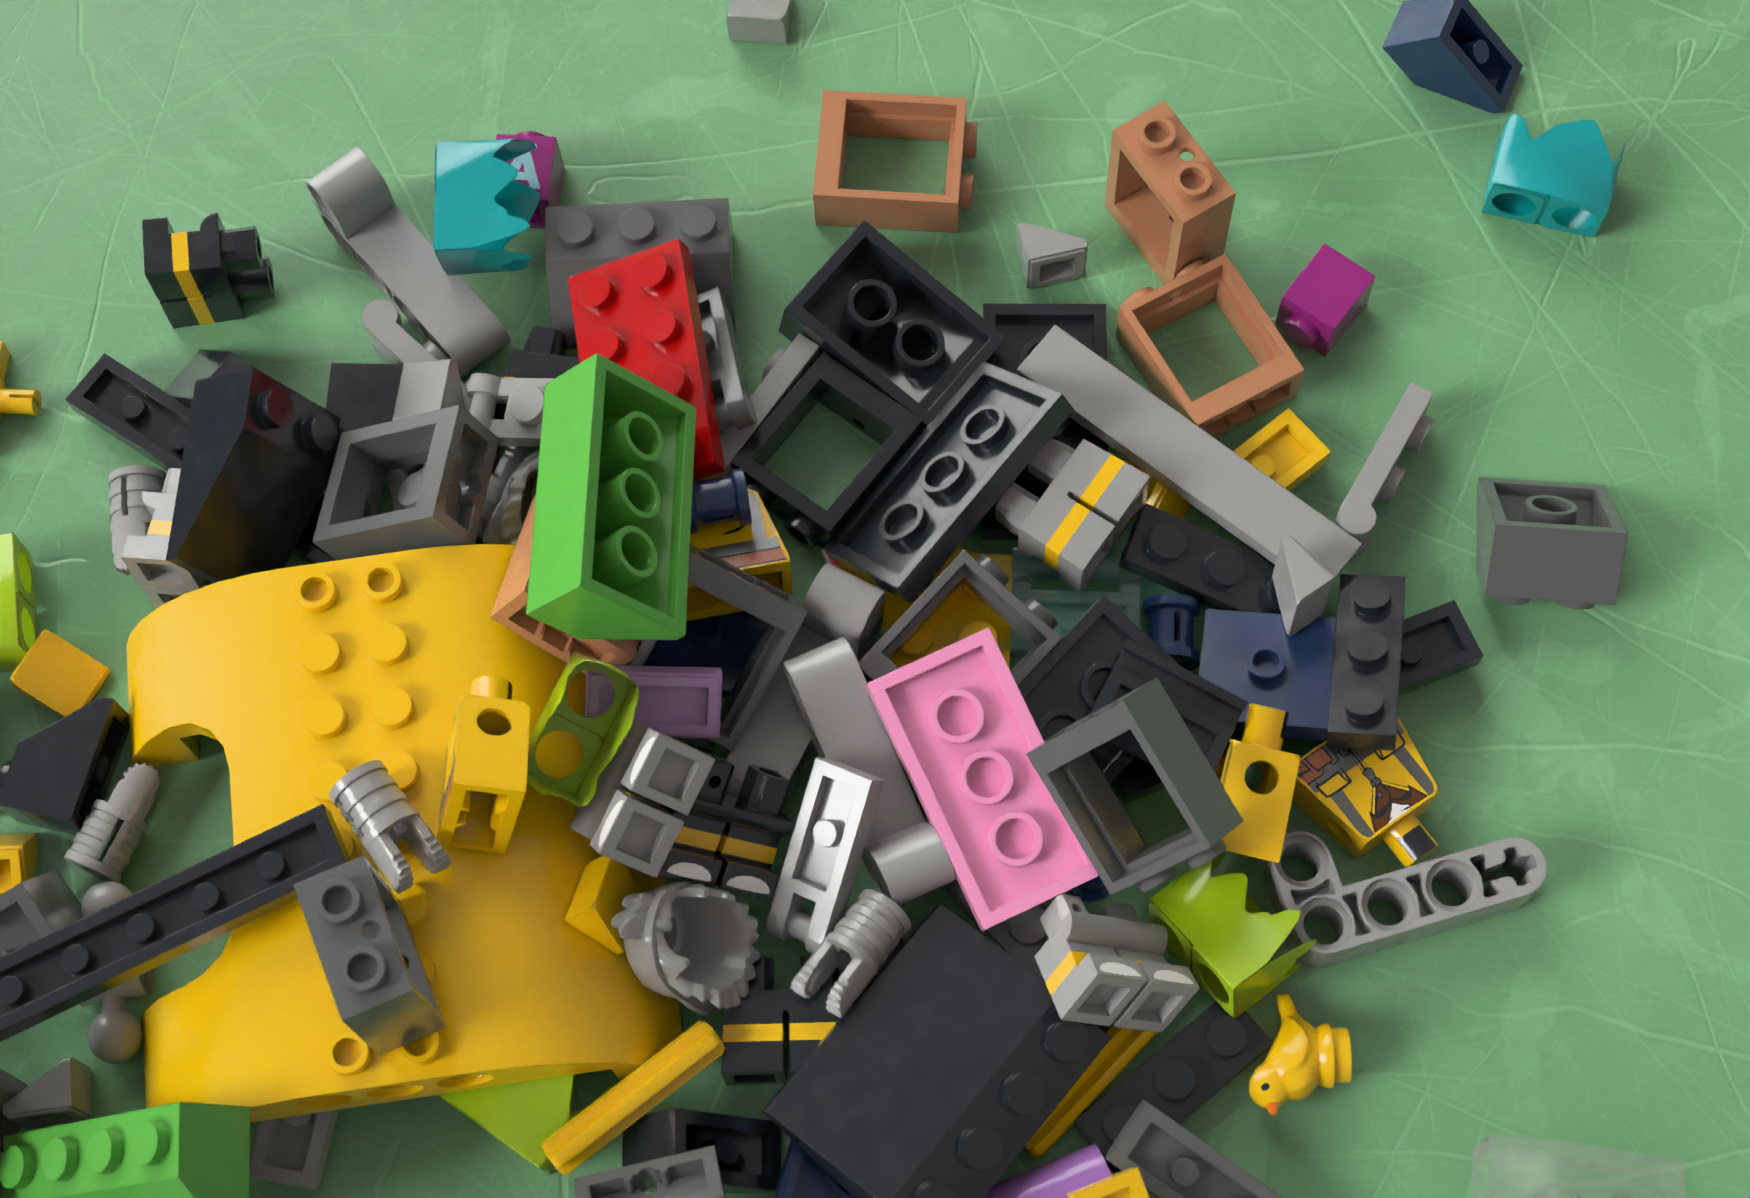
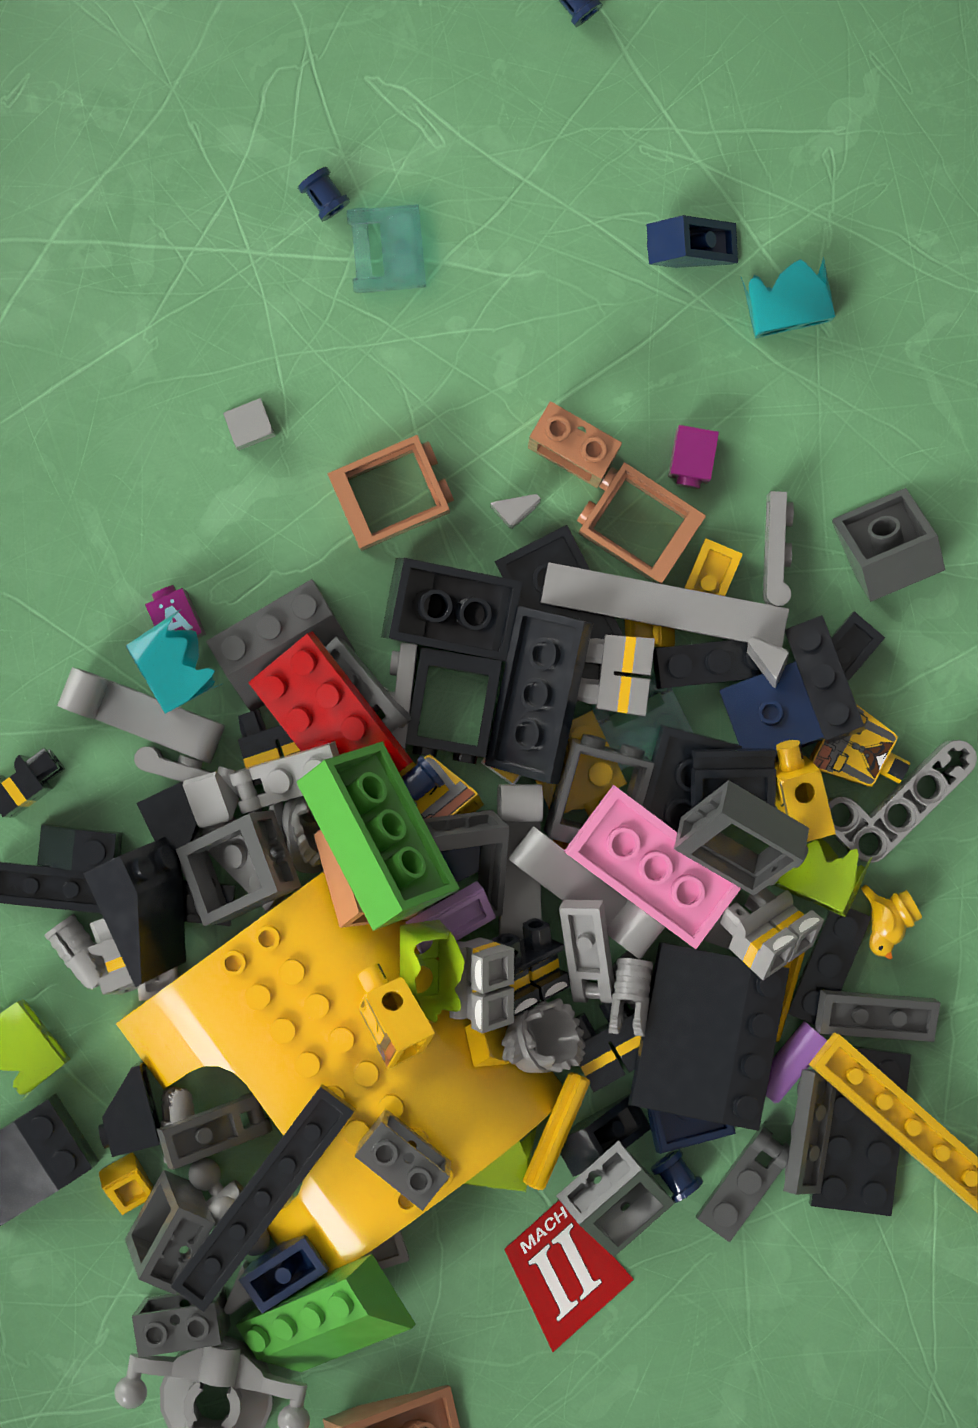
camera: 30 degrees left, 20 degrees up
(58, 675) = (91, 1062): yellow slope -> none
(111, 1080) = (282, 1272): none -> dark blue slope
(137, 834) = (212, 1131): none -> dark grey plate
(384, 817) = (352, 1073): light grey hinge -> none
(1172, 626) = (705, 711): dark blue bush -> none

